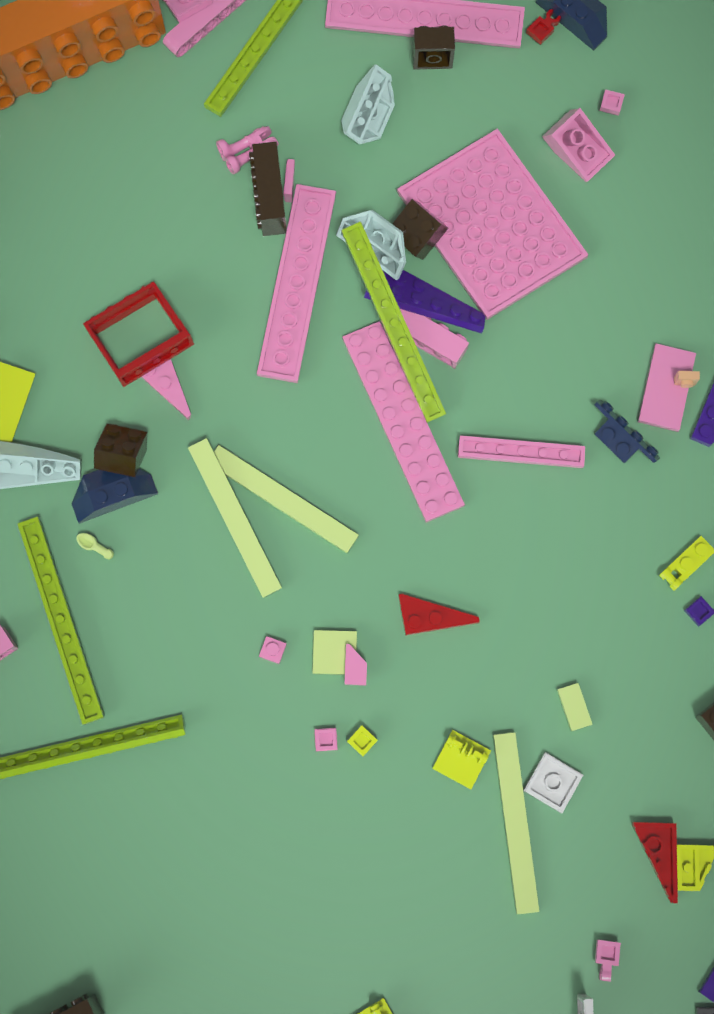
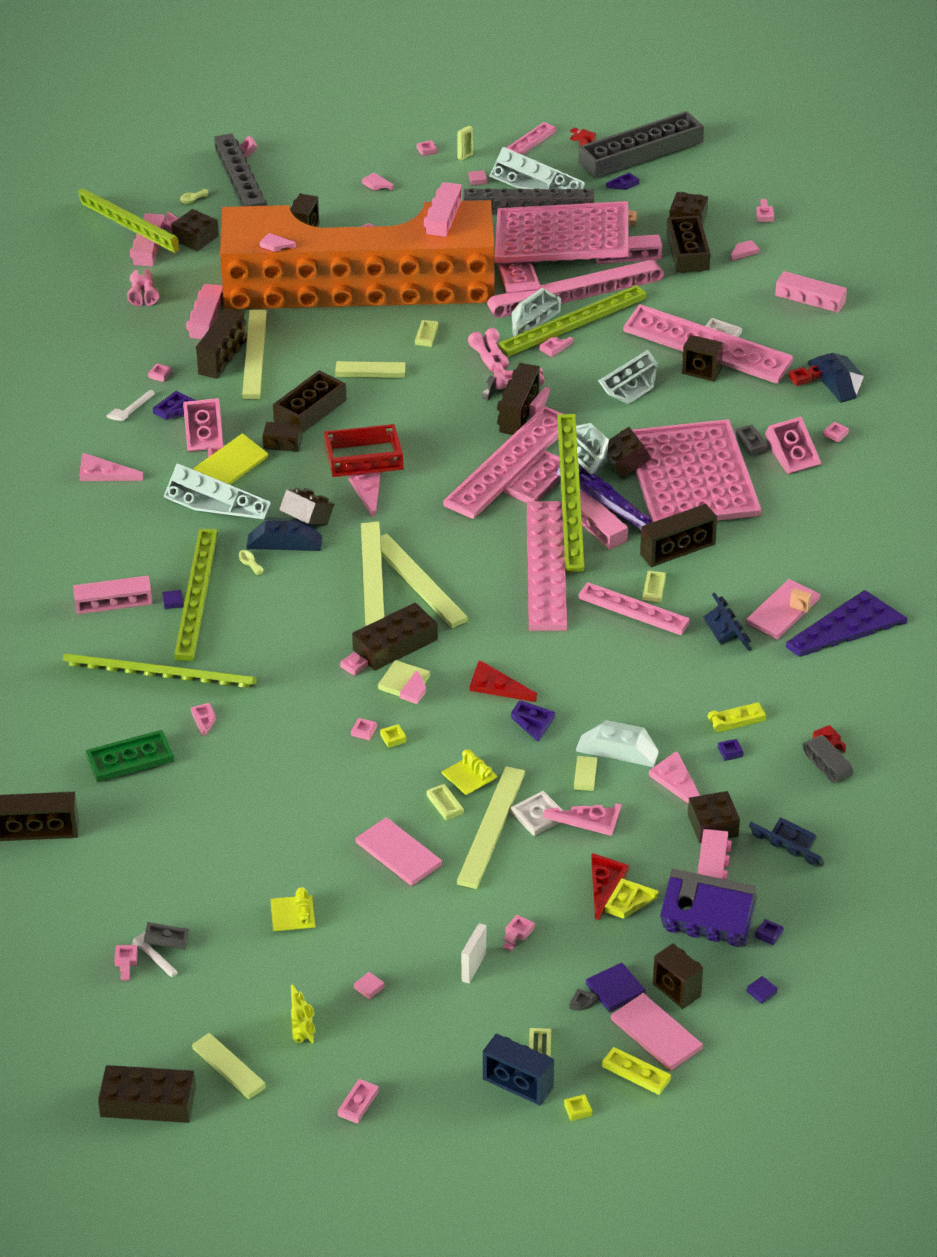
camera: 25 degrees right, 35 degrees down
(38, 343) = (282, 436): none -> dark brown brick
(38, 636) = (172, 599): none -> dark purple tile
(44, 280) = (310, 400): none -> dark brown brick
(82, 195) = (370, 369): none -> yellowish green tile
(105, 888) = (129, 755): none -> green plate
(116, 112) = (426, 333): none -> yellowish green tile
(154, 794) = (204, 717): none -> bright pink tile
(193, 101) = (490, 340): none -> bright pink piece
(219, 43) = (535, 311): none -> light aqua wedge
(225, 182) = (491, 388): none -> dark grey tile
(262, 79) = (554, 346): none -> bright pink tile
(299, 598) = (395, 636): none -> dark brown brick
(335, 293) = (535, 479): none -> bright pink tile
(440, 898) = (399, 851): none -> bright pink tile
(454, 807) = (445, 802): none -> yellowish green tile
(490, 655) = (532, 718): none -> dark purple wing
(525, 332) = (678, 535): none -> dark brown brick
(525, 407) = (654, 586): none -> yellowish green tile
(531, 148) = (751, 439): none -> dark grey plate
(589, 650) = (620, 743): none -> light aqua wedge
(613, 770) = (587, 817): none -> bright pink wing
(663, 674) = (675, 777): none -> bright pink wing

